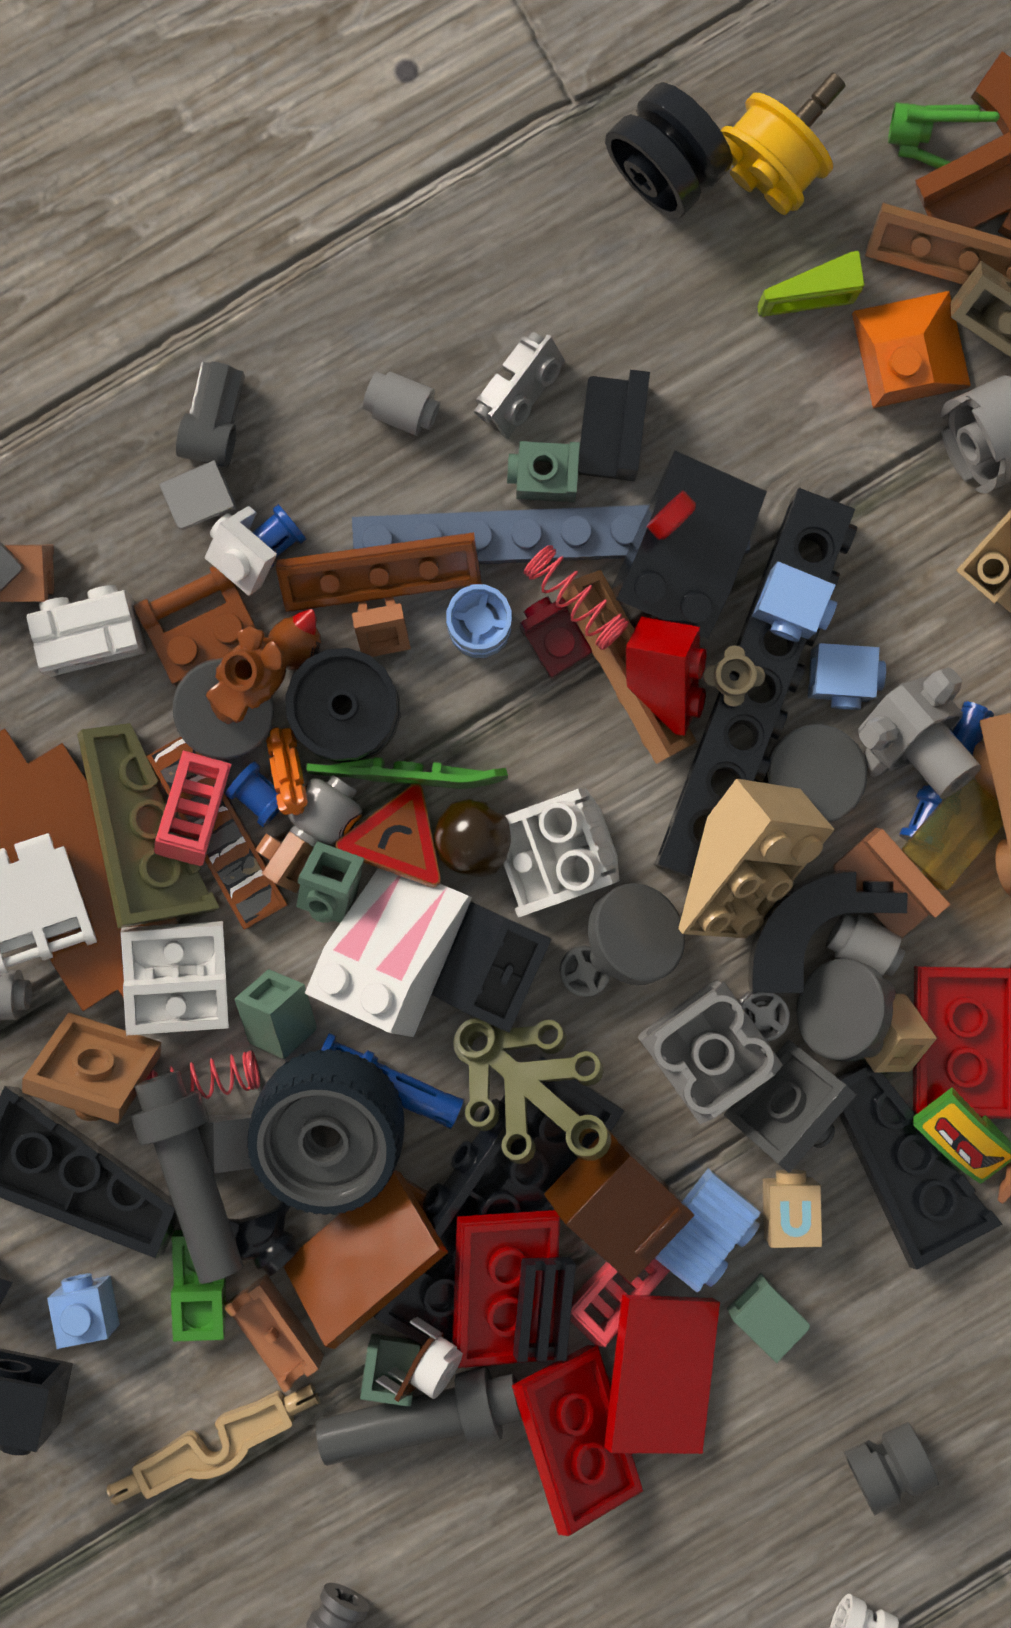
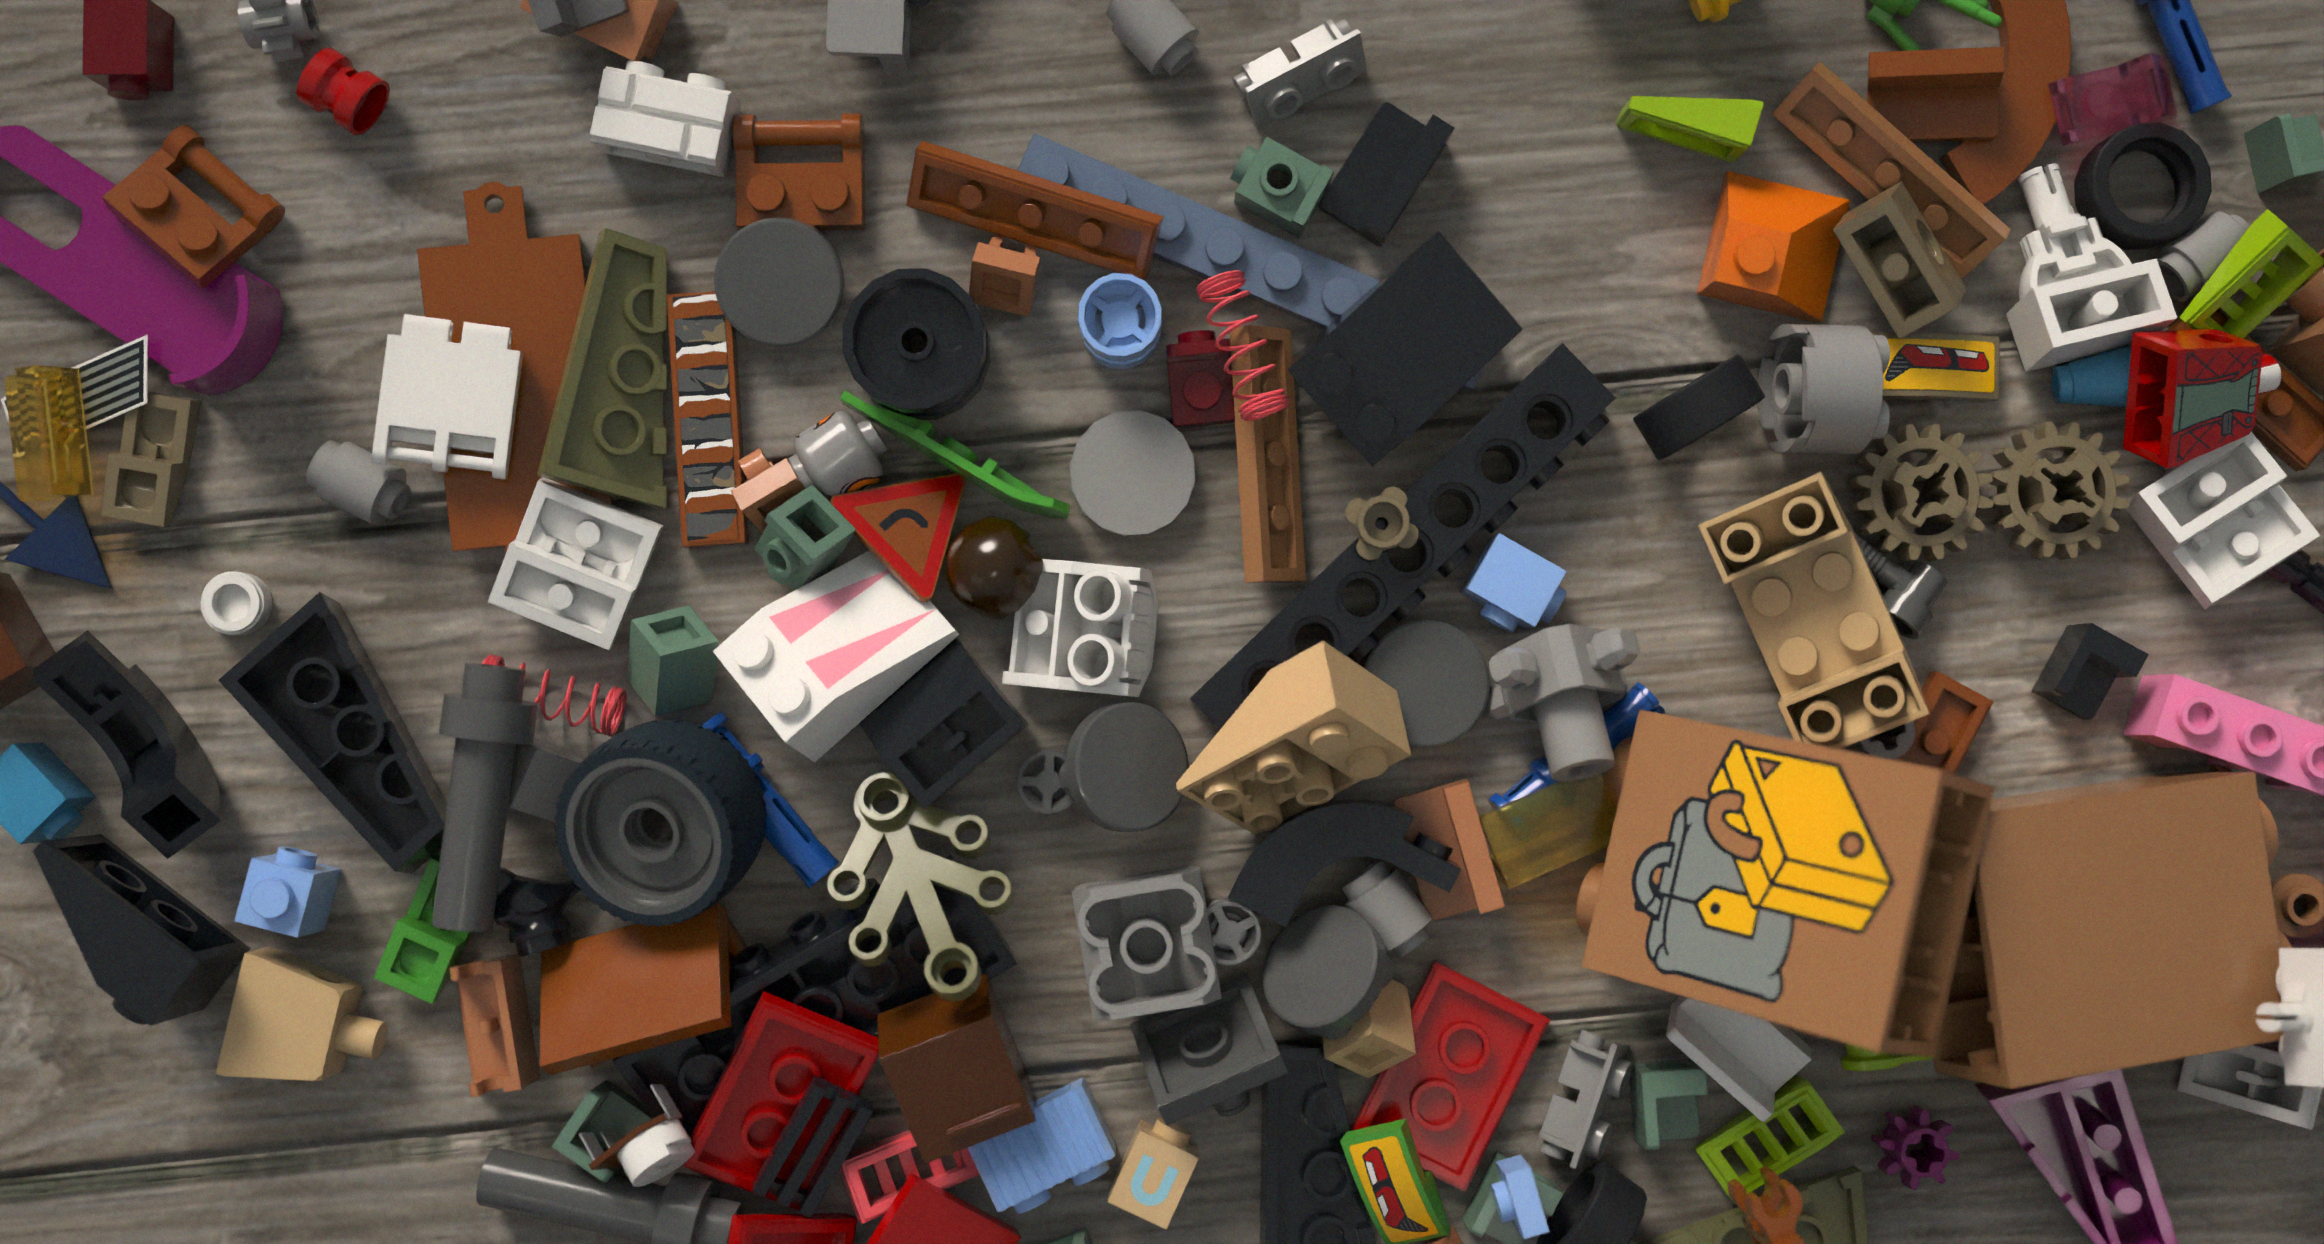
camera: 30 degrees right, 0 degrees up
(91, 1068) = (429, 620): medium nougat tile -> none
(131, 1399) = (294, 1021): none -> tan torso
(183, 848) = (654, 419): coral slope -> none
(190, 1457) = (332, 1120): tan piece -> none
(240, 552) = (883, 110): white bracket -> none
(255, 793) = (773, 399): blue bush -> none
(259, 665) = (841, 250): dark orange animal -> none
(279, 531) = (931, 113): blue bush -> none
(286, 771) = (816, 389): orange axle -> none
(537, 724) = (1132, 473): none -> light grey tile
(666, 669) = (1306, 481): red slope -> none
(672, 516) = (1395, 303): red tile -> none
(795, 603) = (1491, 473): light blue brick -> none
(916, 487) = (1699, 407): none -> black tyre

